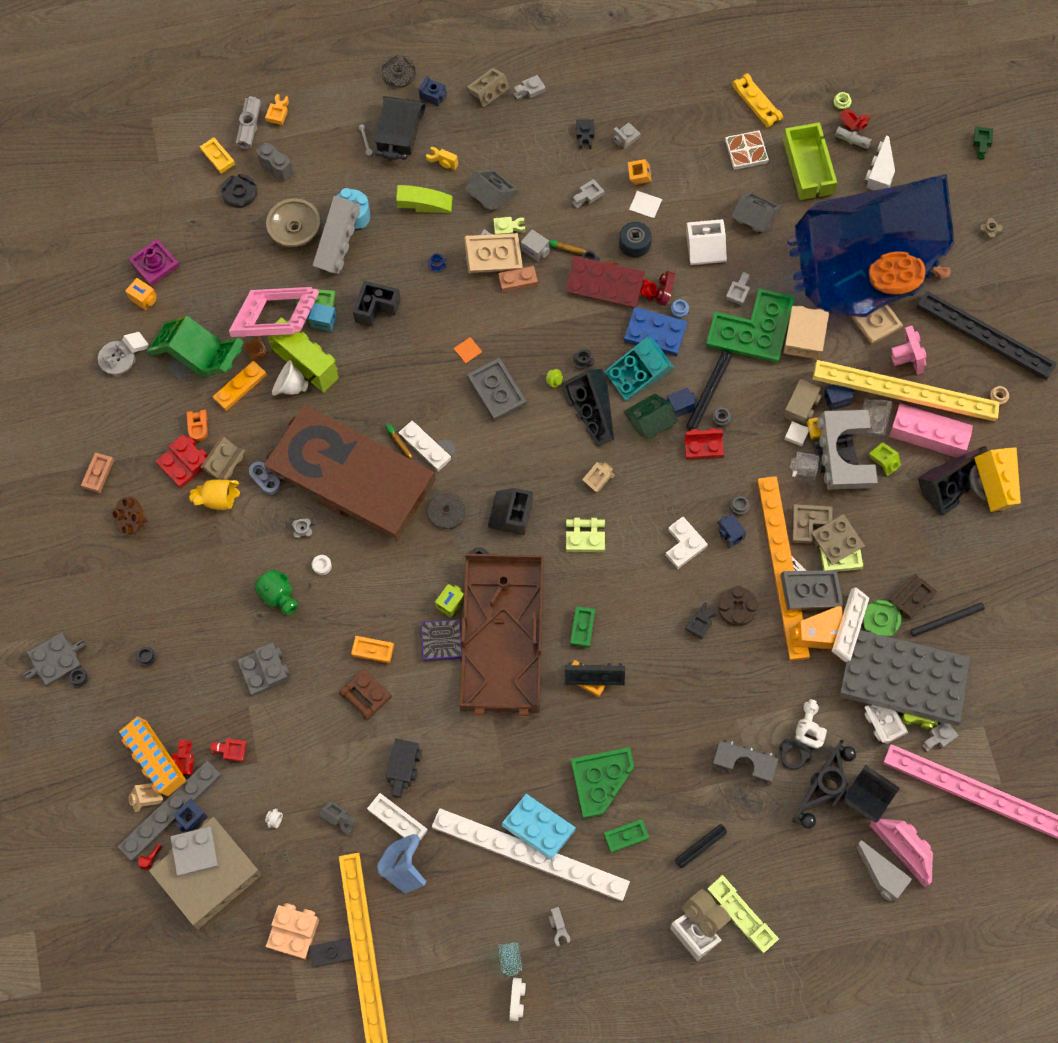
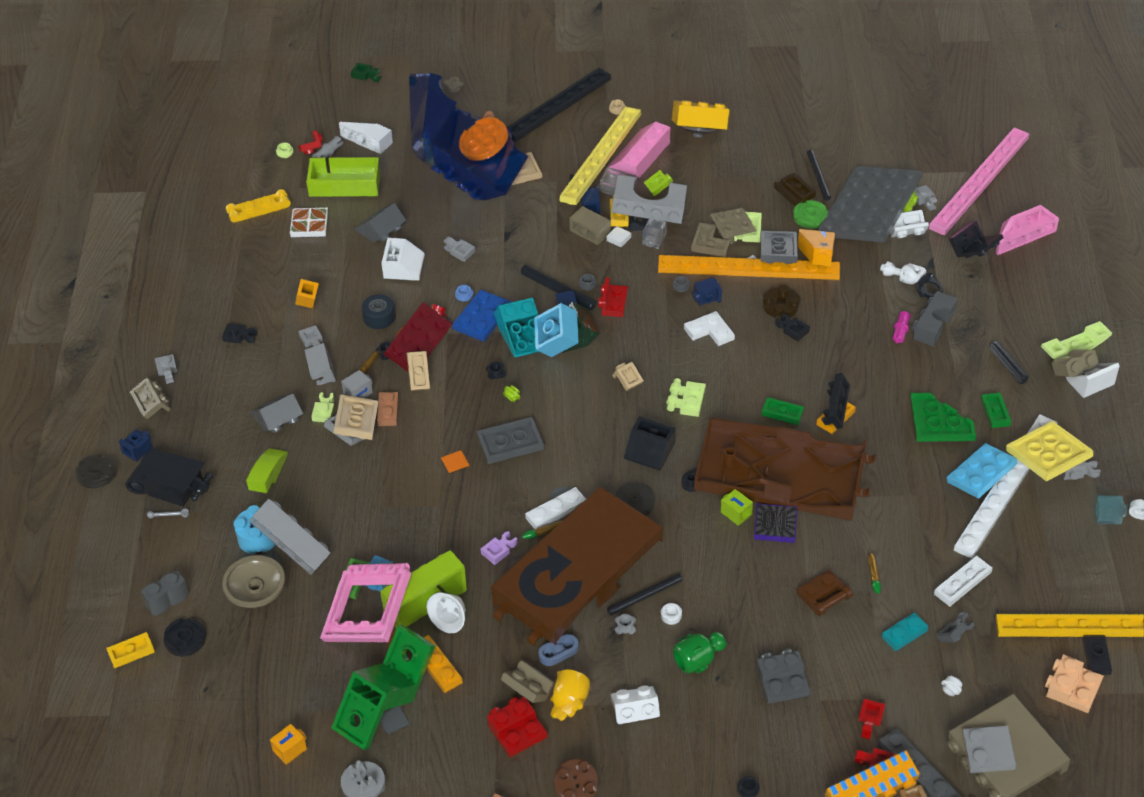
camera: 80 degrees left, 20 degrees down
(135, 342) = (349, 757): white tile -> none
(154, 262) = (248, 728): magenta plate -> none
(190, 808) = (943, 759): dark blue brick -> none
(197, 430) = (481, 706): orange plate -> none
(218, 550) = (635, 704): none -> white bracket
(248, 123) = (101, 614): light grey piece -> none
(277, 112) = (97, 587): light orange plate -> none
(332, 772) = (905, 632): none -> teal plate
(339, 539) = (644, 594): none -> black bar
(366, 405) = (498, 549): none -> lavender plate
(372, 649) = (777, 578): light orange plate -> none
(375, 298) = (377, 522): black brick -> none
(381, 740) = (876, 585): none -> pearl gold piece
(402, 765) = (908, 568): black hinge -> none
(403, 874) = (1011, 590): medium blue piece -> none
(437, 258) = (345, 469): clear blue plate -> none
(445, 158) = (224, 444): yellow plate -> none
(557, 208) = (320, 364): none -> light grey hinge
(561, 290) = (418, 371): none -> tan plate
(565, 889) = (1049, 451): none -> light yellow plate
(591, 400) = (544, 371): black wedge -> none
(625, 135) = (256, 303): light grey bracket -> none
(632, 397) = (556, 330): none -> medium azure brick
(645, 204) = (338, 303): white sticker -> none
(666, 284) = (440, 296): dark red plate -> none
(726, 730) = (901, 327): none -> dark pink axle
(758, 337) = (509, 243): green plate -> none
(806, 332) = (522, 208): tan brick -> none
(825, 795) = (963, 266): black piece -> none
(850, 624) = (817, 226): white tile -> none
(885, 875) = (1044, 248): light grey slope -> none
(910, 351) = (563, 144): bright pink plate -> none
(948, 482) = (690, 149): black wedge -> none

